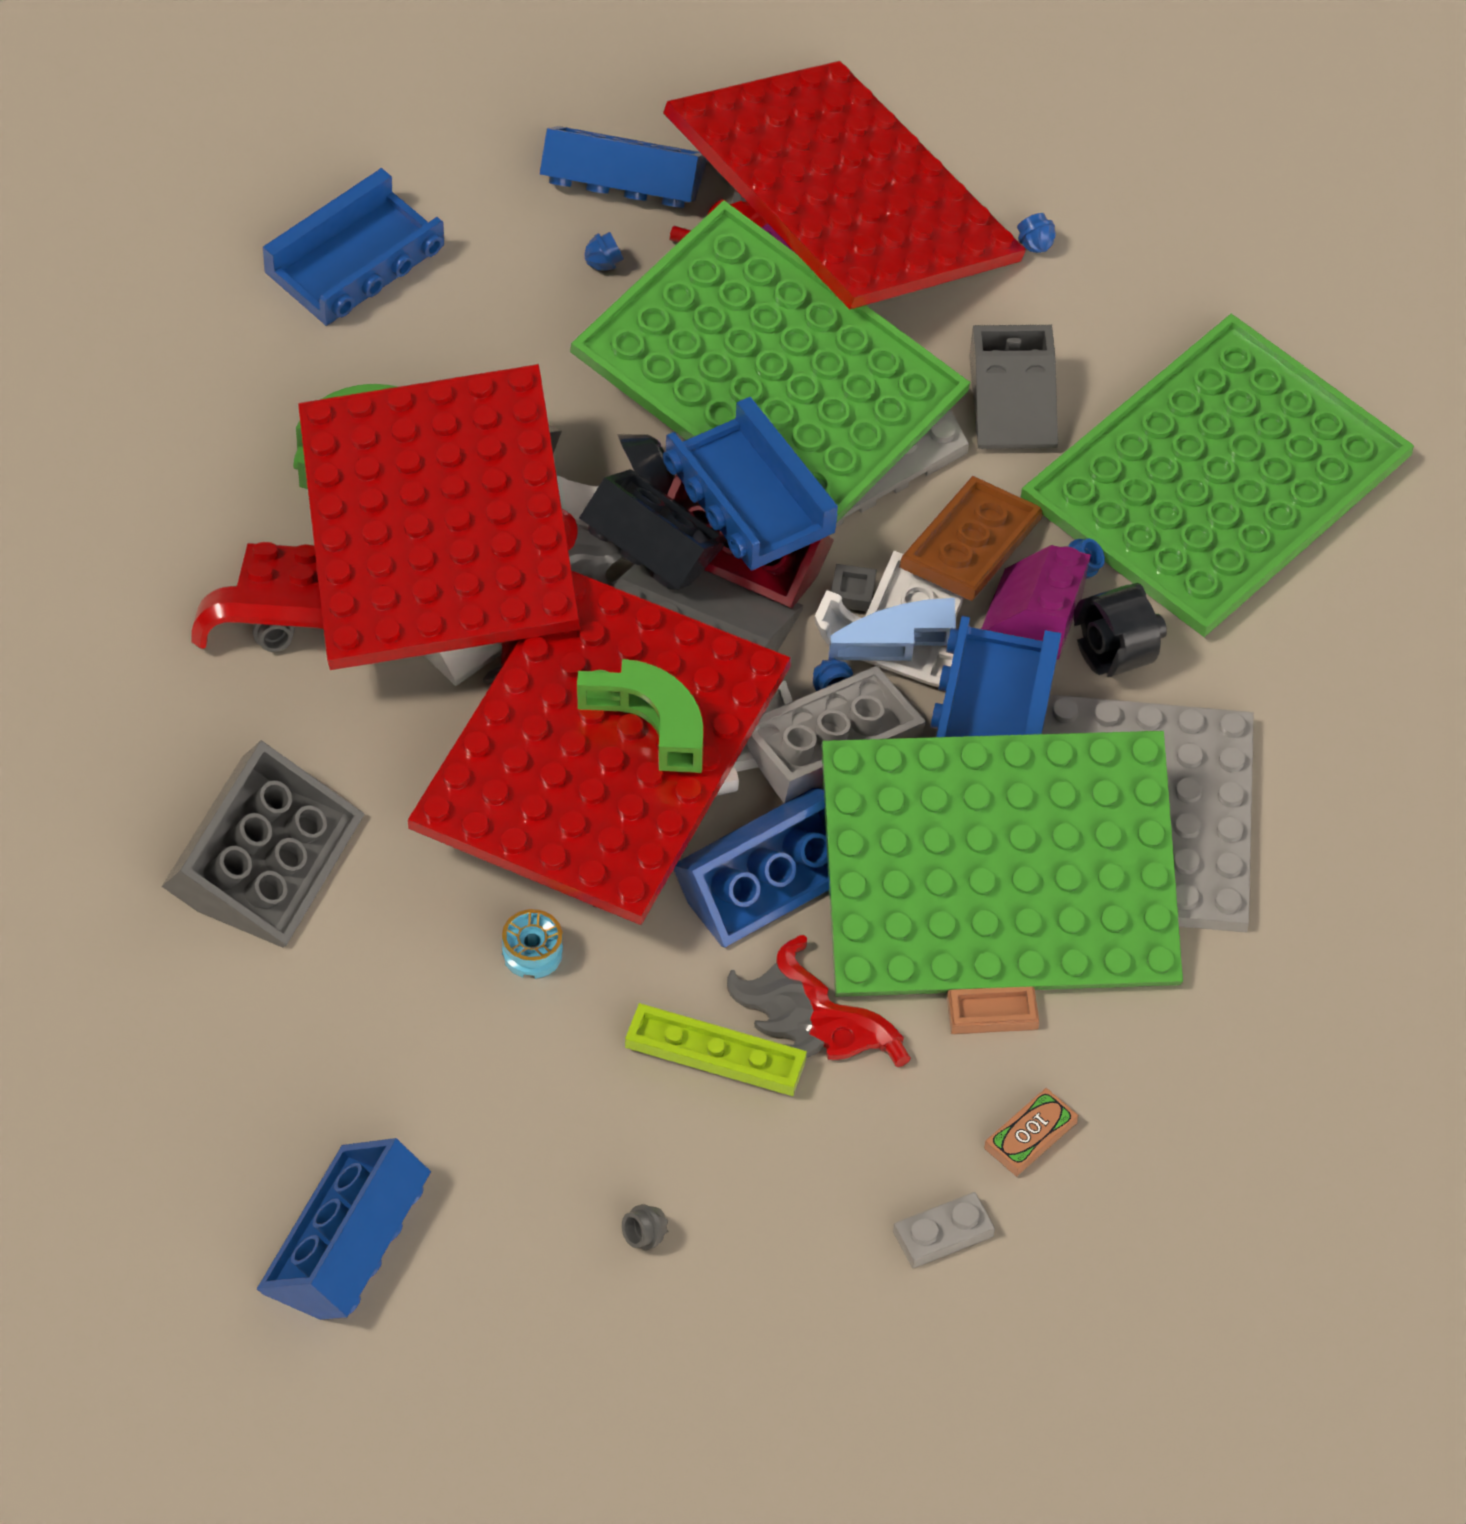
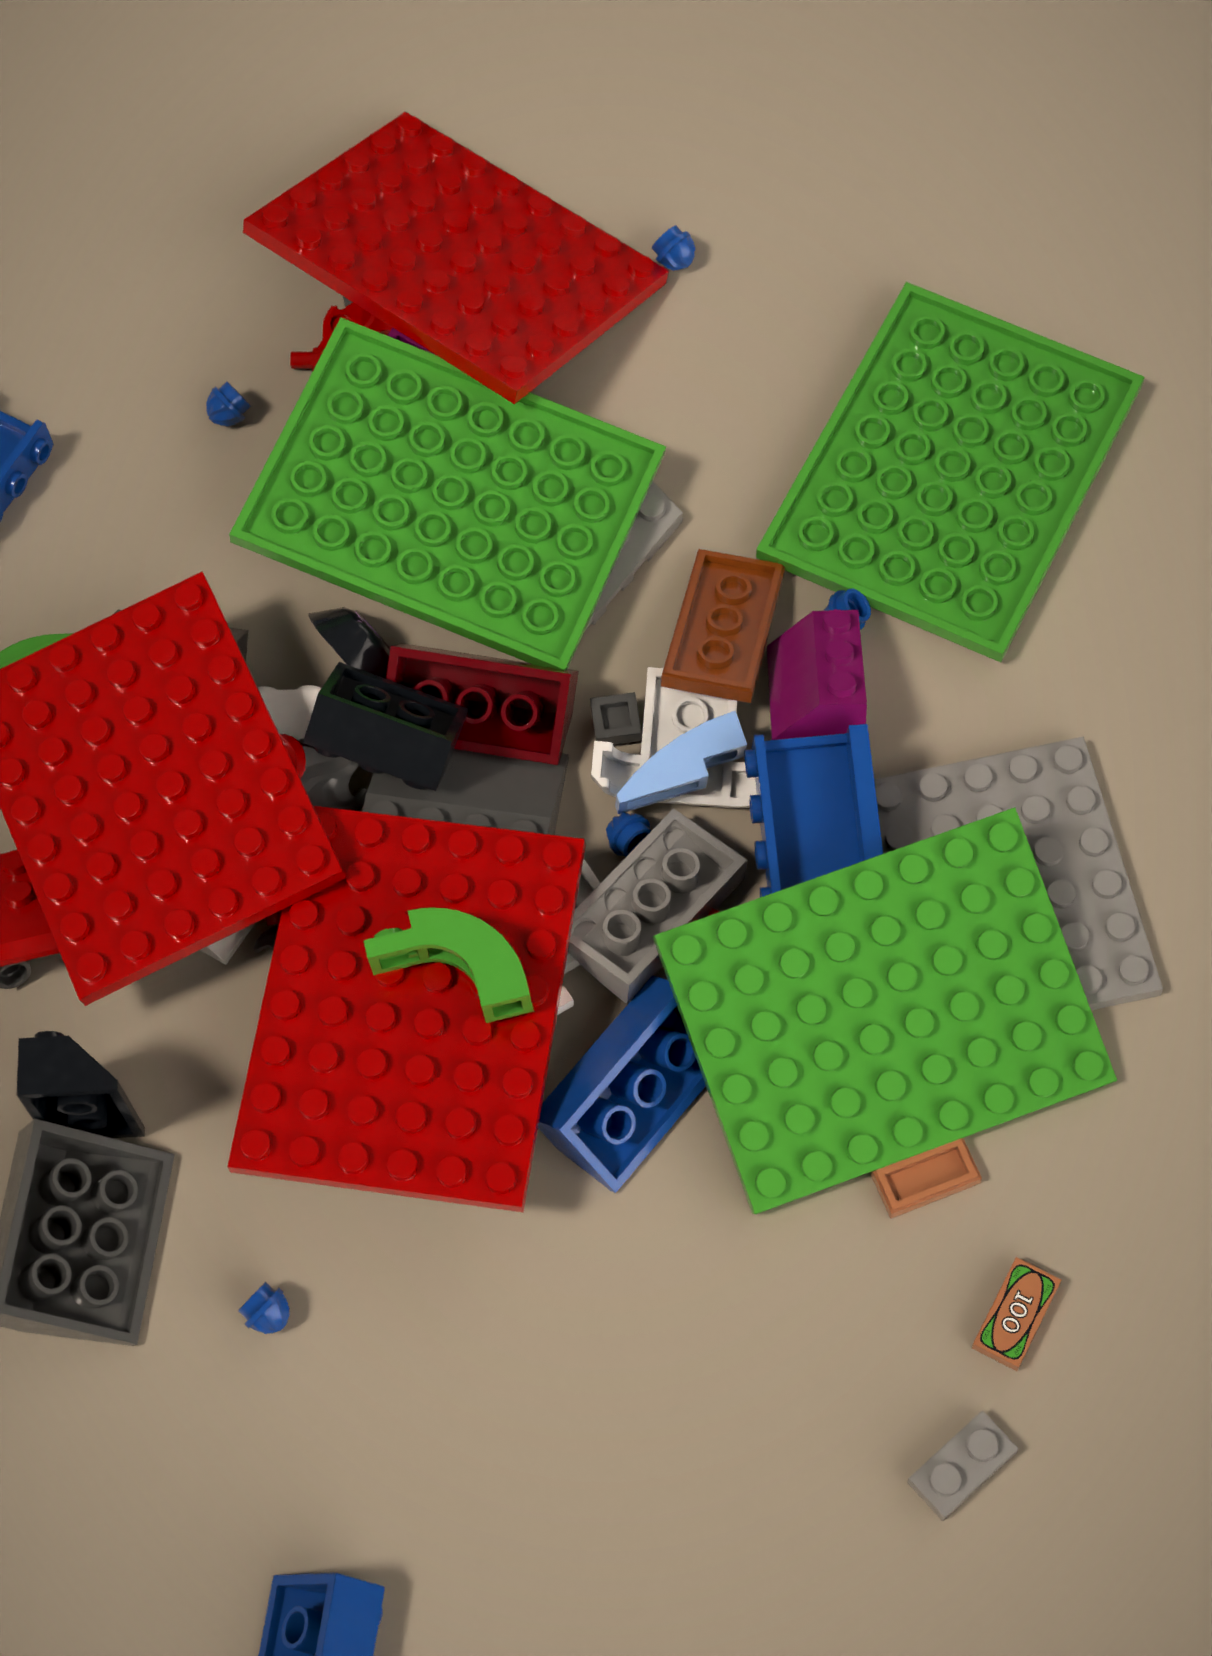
camera: 10 degrees left, 10 degrees up
(302, 724) = (71, 1089): none -> black slope
(401, 946) = (266, 1310): none -> blue plate
(532, 928) = (399, 1241): medium azure wheel -> none
(622, 164) = (214, 298): blue slope -> none
(644, 1226) = (640, 1574): dark grey plate -> none
(715, 1049) = (646, 1325): lime plate -> none
(752, 487) = (477, 647): blue panel -> none
(802, 1012) = (730, 1249): piece -> none
(1014, 386) = (710, 434): dark grey slope -> none
(1119, 630) = (916, 688): black brick -> none

